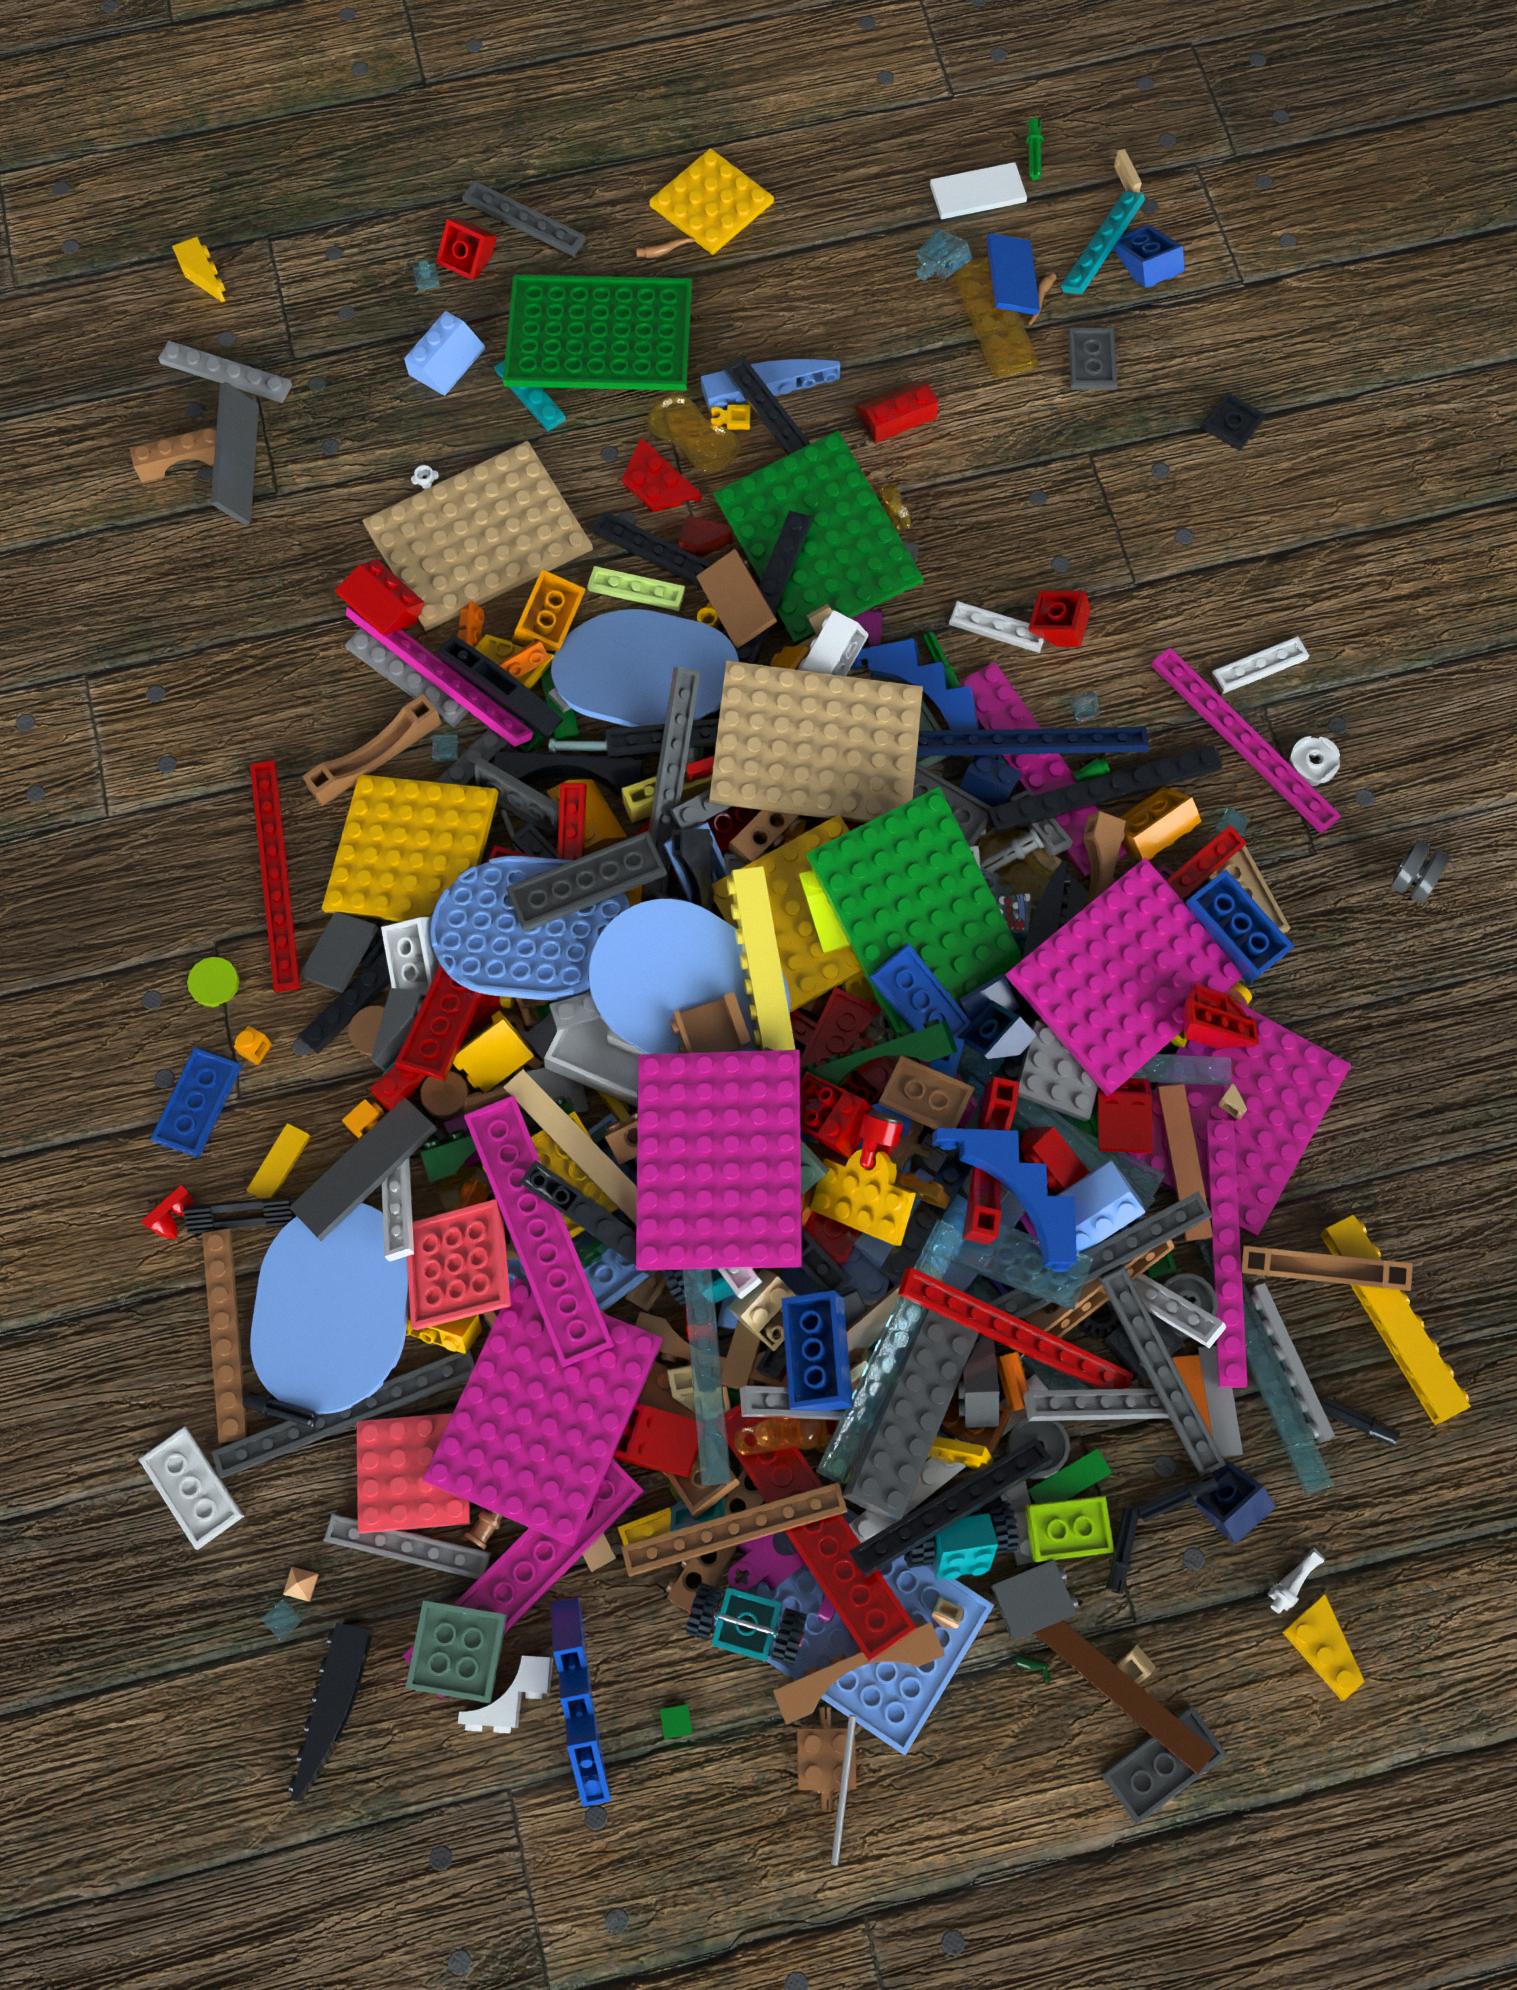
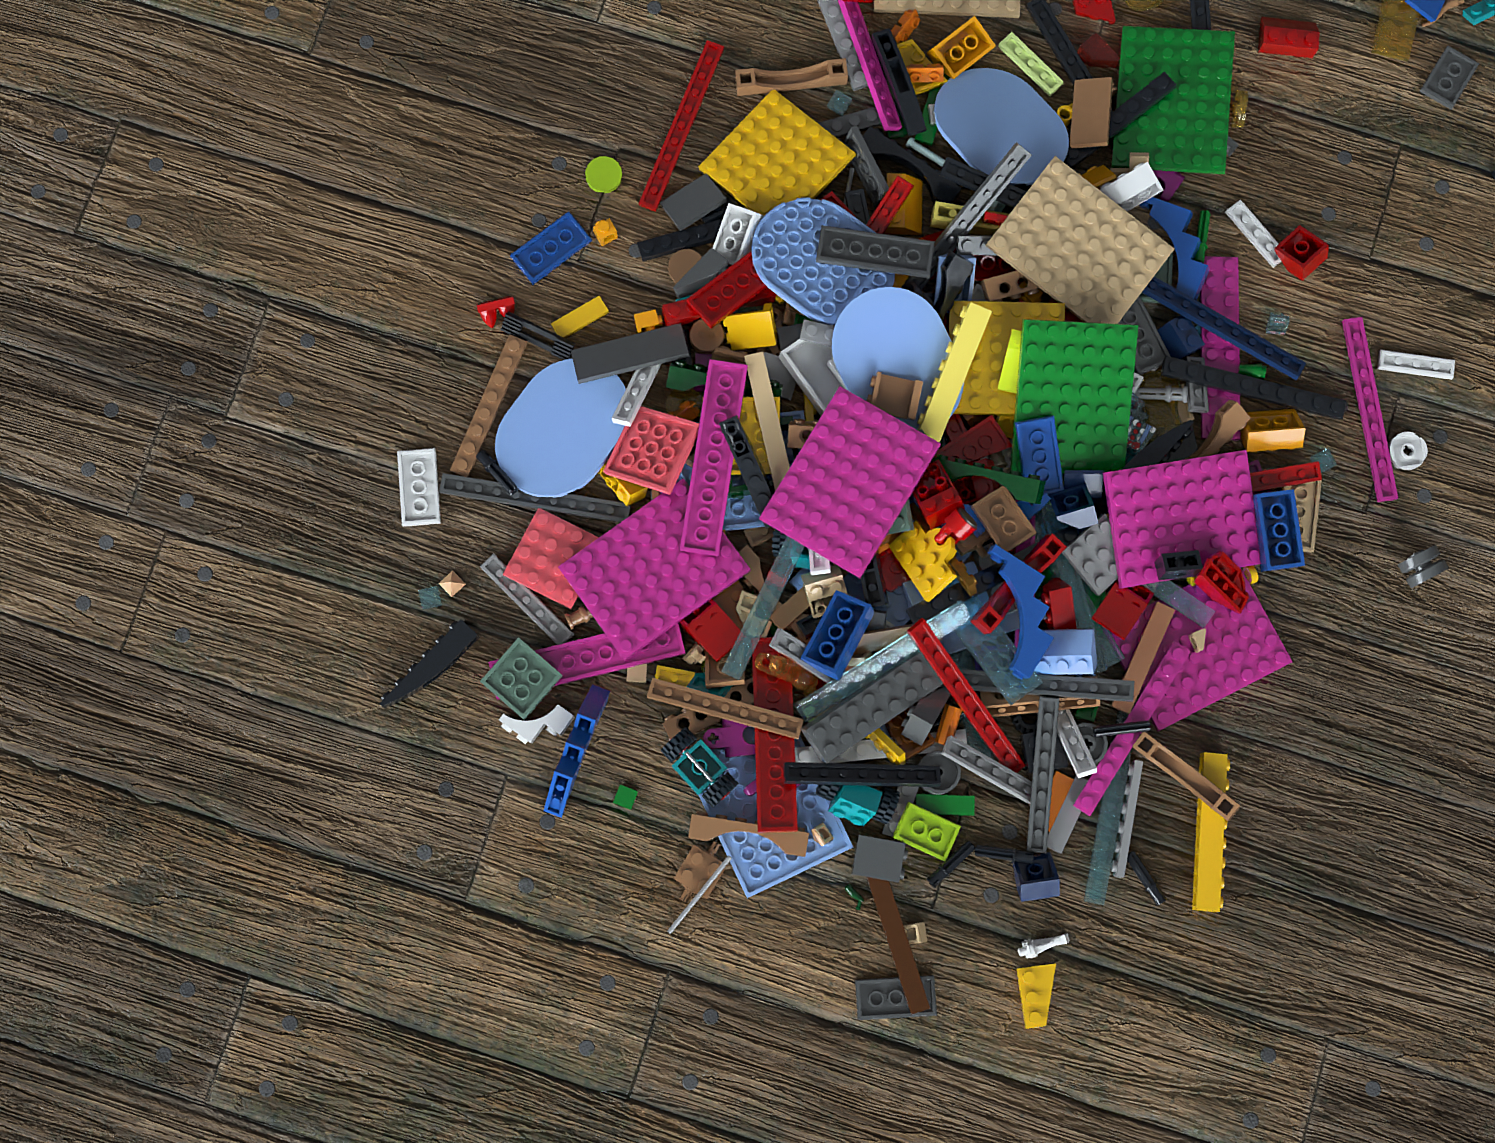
camera: 25 degrees right, 10 degrees up
(656, 1486) = (694, 655): none -> tan plate
(1158, 1028) = (1178, 565): none -> black brick
(1216, 1258) = (1122, 728): none -> black axle

